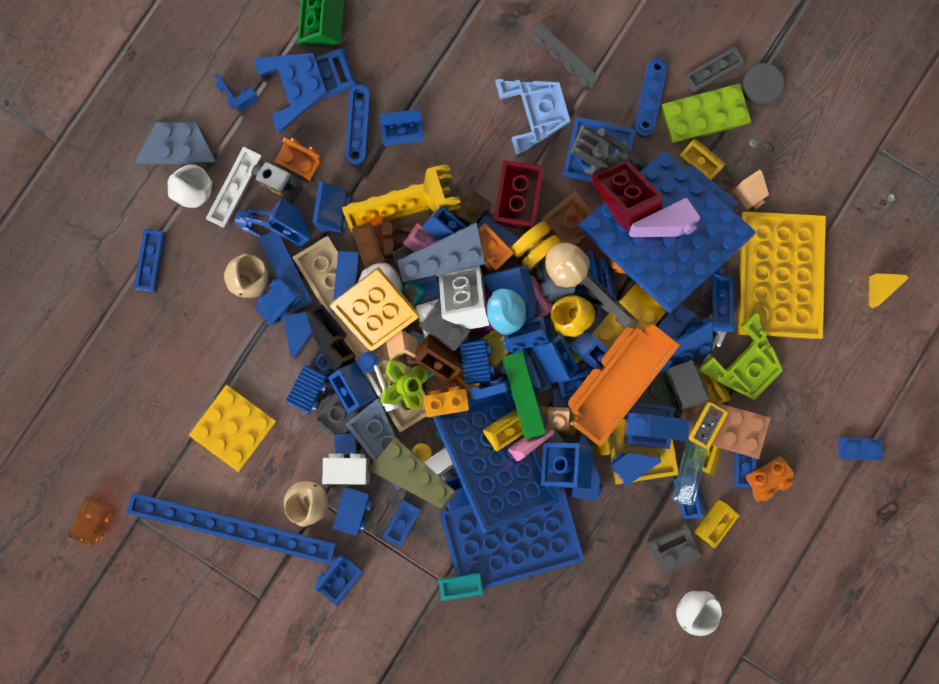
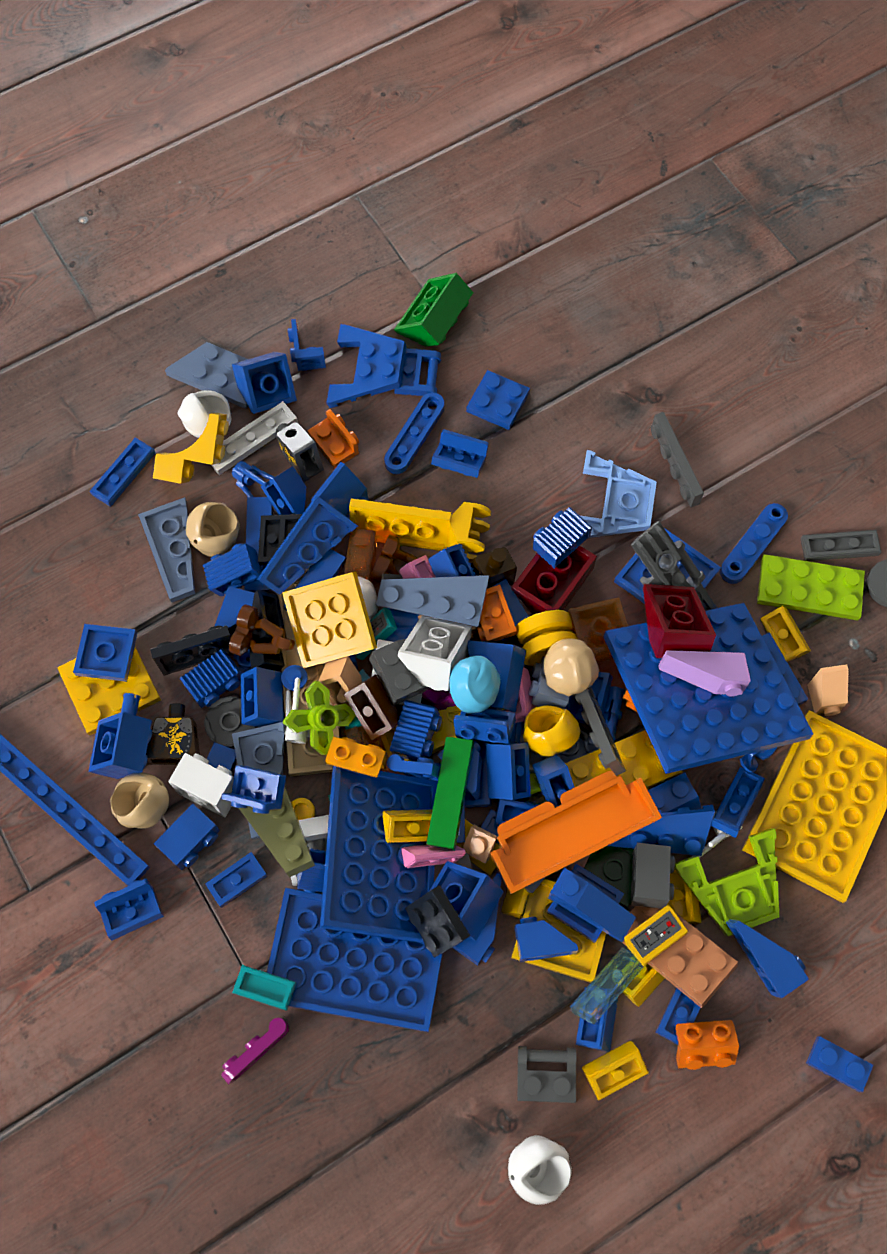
camera: 25 degrees right, 15 degrees down
(192, 238) = (207, 449): none -> yellow arch
(212, 295) = (171, 547): none -> sand blue wing
(220, 136) = (265, 381): none -> blue slope
(220, 409) = (105, 652): none -> blue plate
(269, 468) = (121, 741): none -> blue brick
(283, 376) = (191, 649): none -> black plate
(301, 259) = (272, 534): none -> black wing
(304, 446) = (172, 737): none -> torso
(317, 351) = (243, 639): none -> reddish brown piece
(327, 250) = (307, 542): none -> blue wing
(387, 459) = (256, 789): none -> blue bracket
(407, 67) = (498, 400): none -> blue plate
(475, 627) = (256, 1049): none -> magenta plate
(513, 164) = (561, 536): none -> blue brick
(560, 490) = (437, 921): none -> black plate
(795, 406) = (775, 966): none -> blue slope

